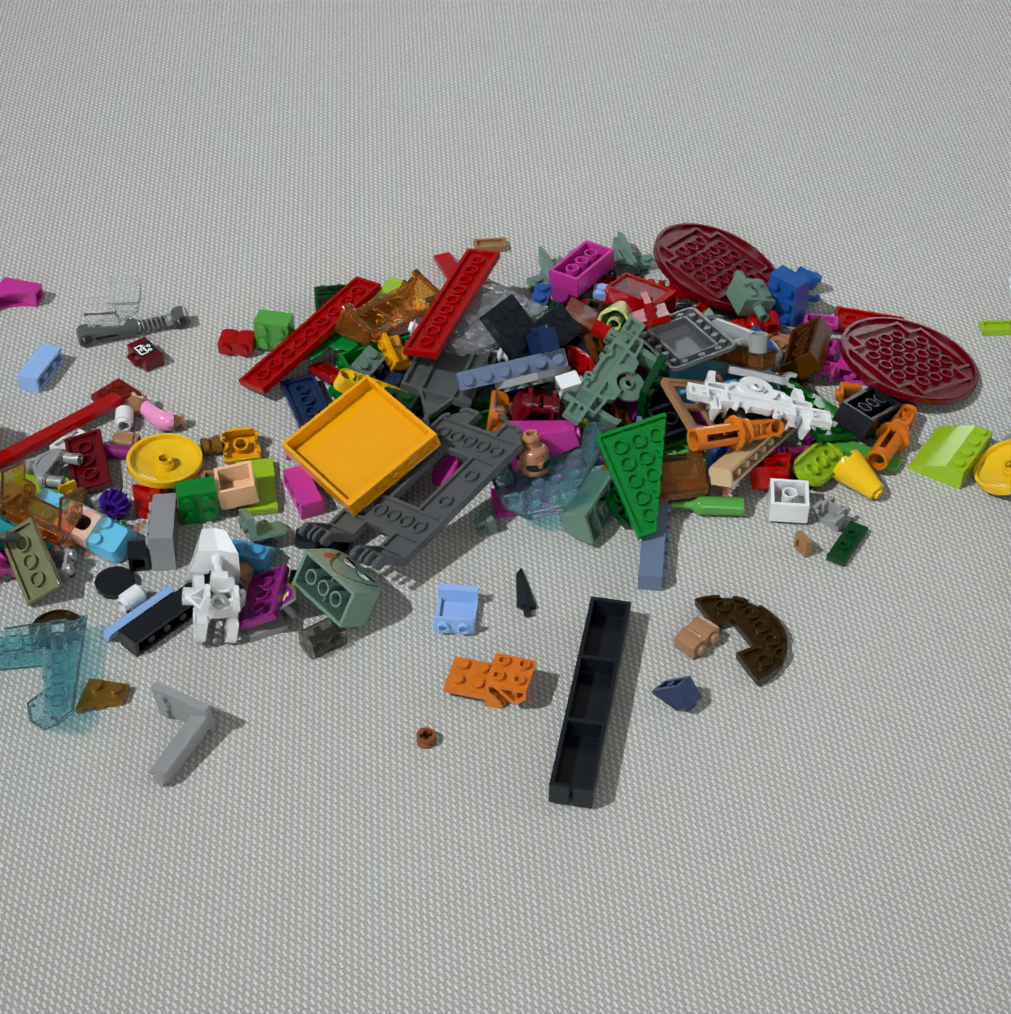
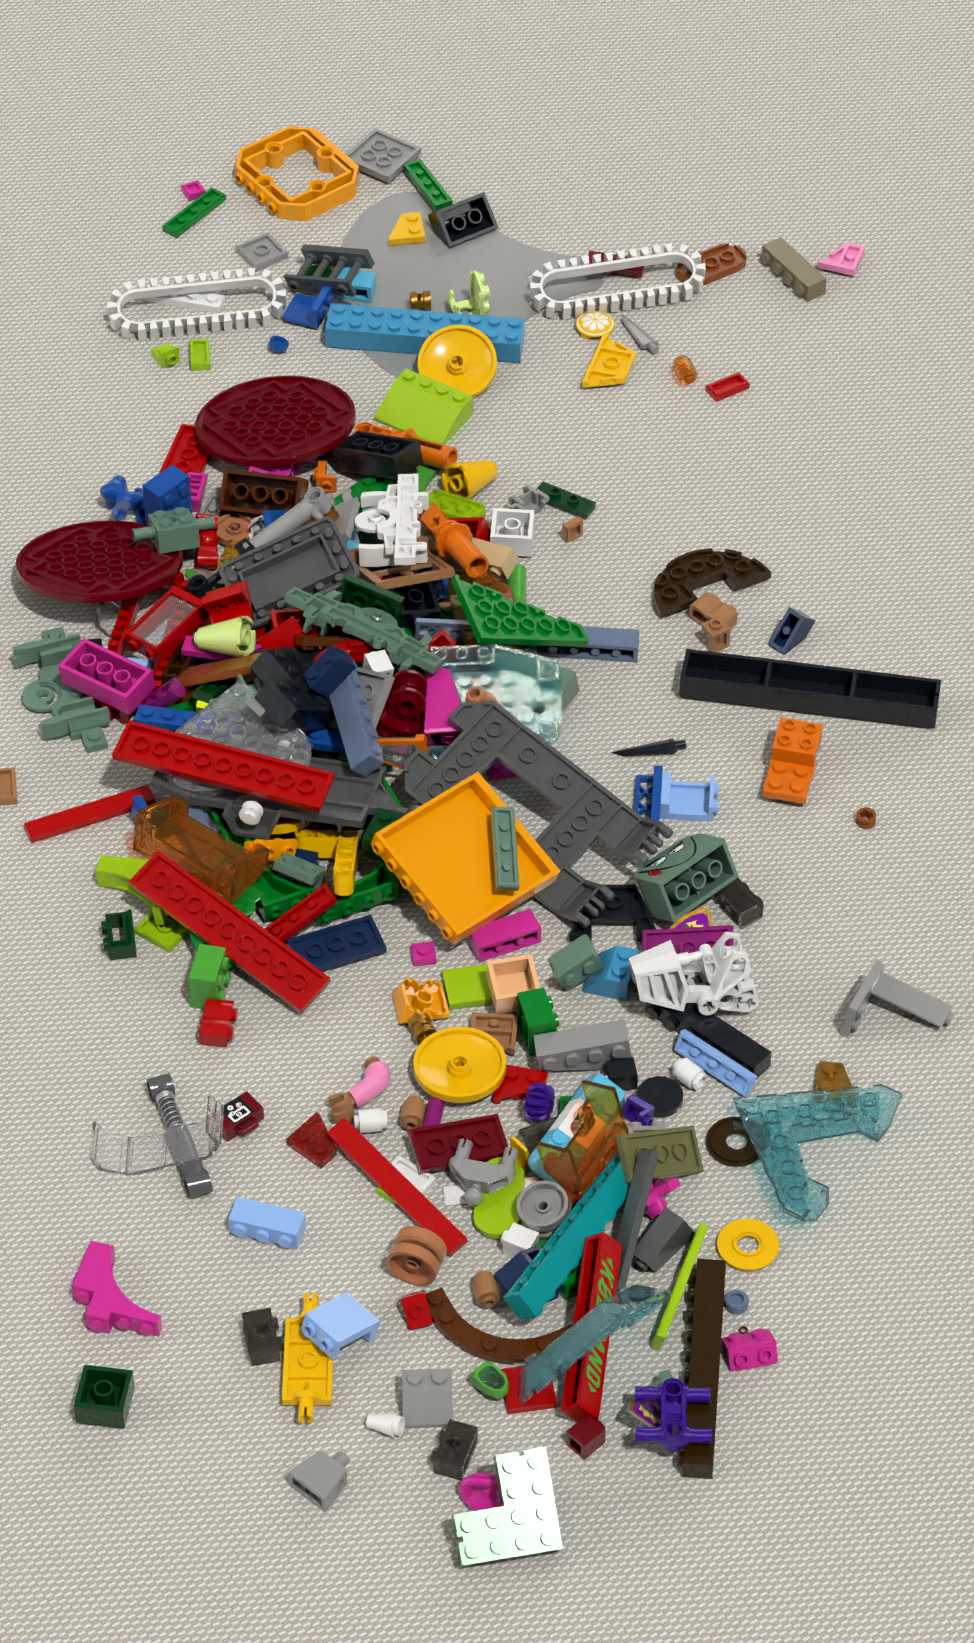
camera: 90 degrees left, 5 degrees up
(92, 566) = (638, 1110): none -> dark purple bracket
(363, 462) = (505, 848): none -> sand green tile
(428, 585) = (655, 798): none -> blue fence
(662, 633) = (718, 634): none -> medium nougat bracket
(989, 309) = (166, 355): none -> lime bracket

